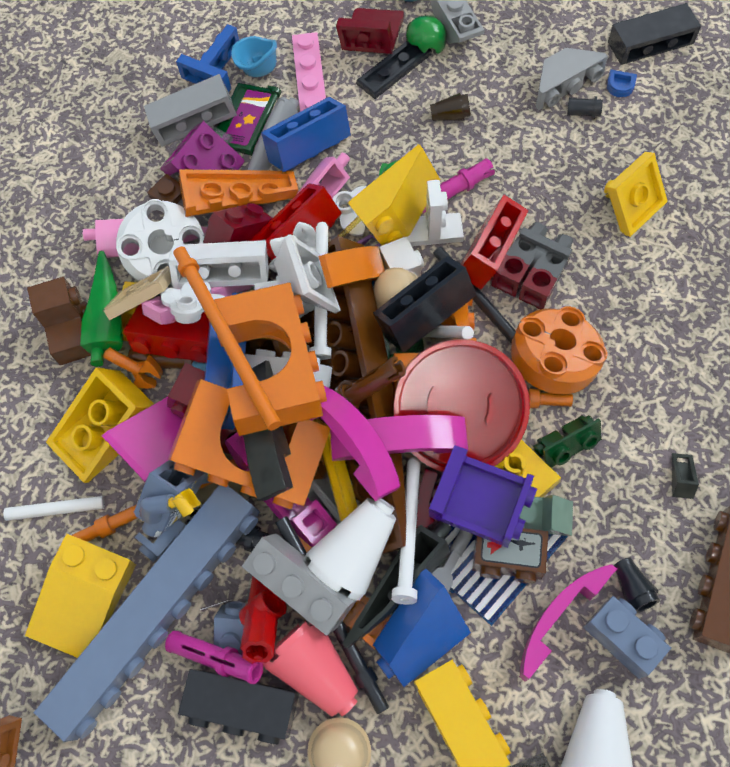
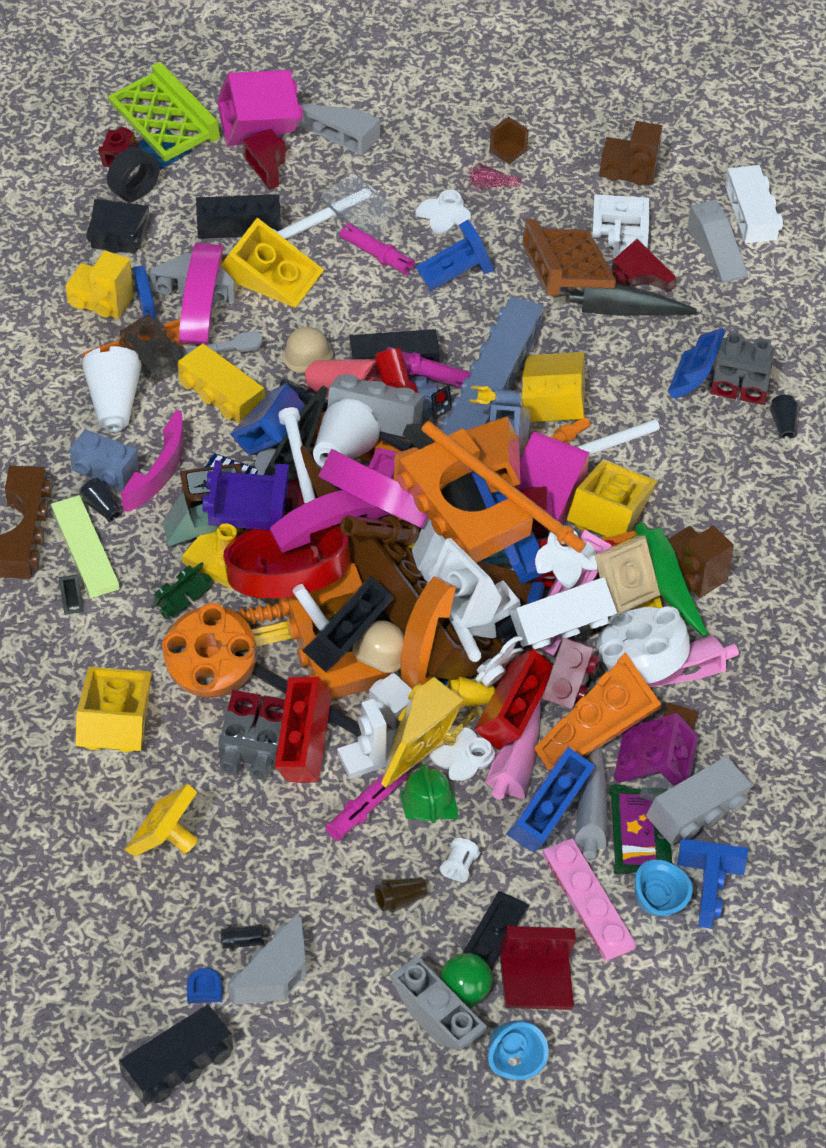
camera: 155 degrees right, 15 degrees down
(396, 120) = (460, 859): none -> white bush
(659, 327) = (113, 709): none -> yellow slope
(661, 534) = (85, 546): none -> yellowish green tile

